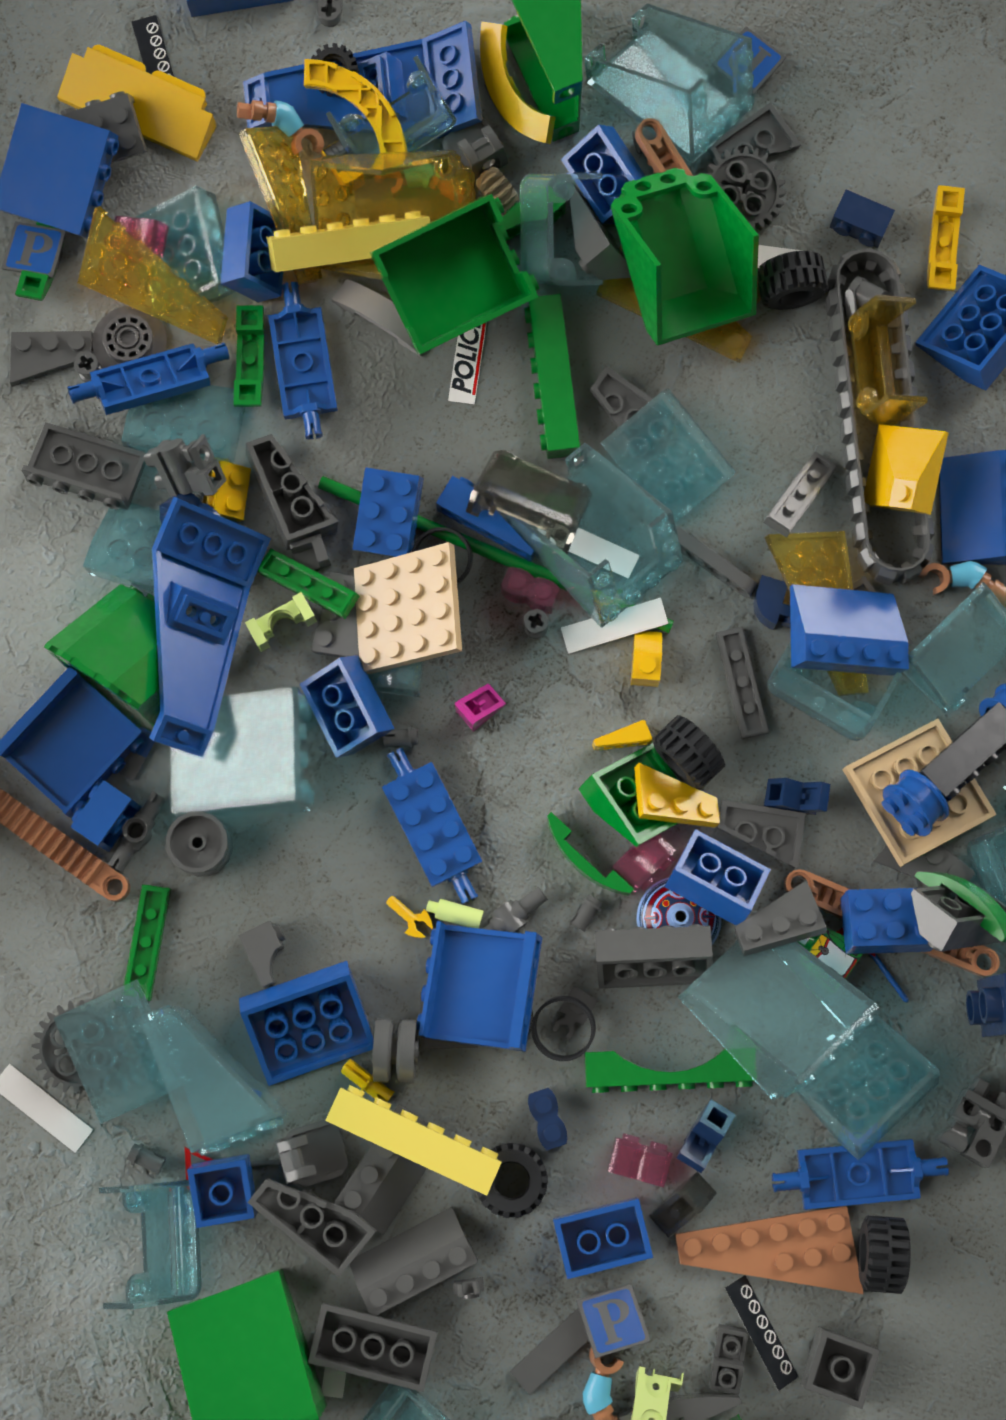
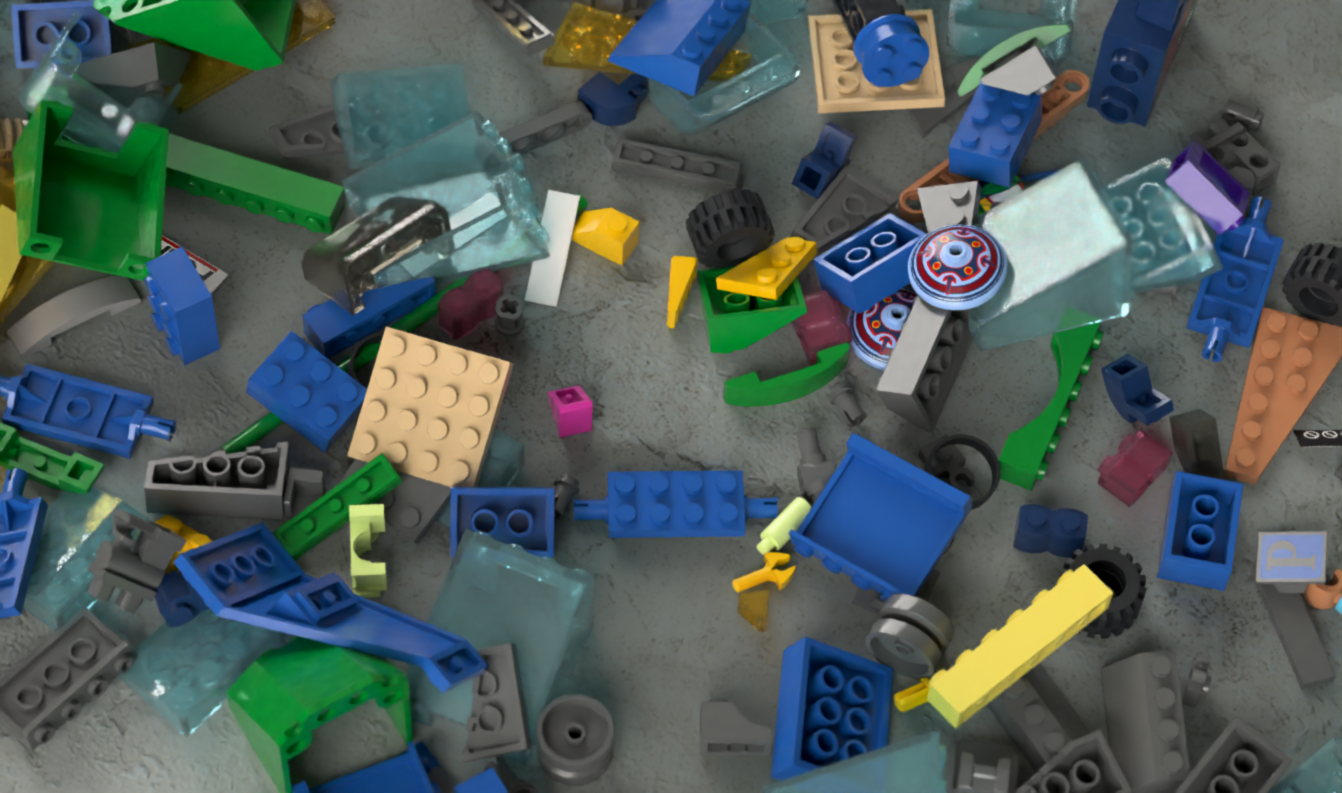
camera: 70 degrees left, 20 degrees down
(181, 781) = (498, 709): none -> dark grey wing
(372, 925) = (754, 608): none -> clear yellow slope
(408, 387) = (182, 306): none -> blue brick
(726, 966) = (962, 279): none -> dish
(905, 1112) = (1208, 188): none -> window

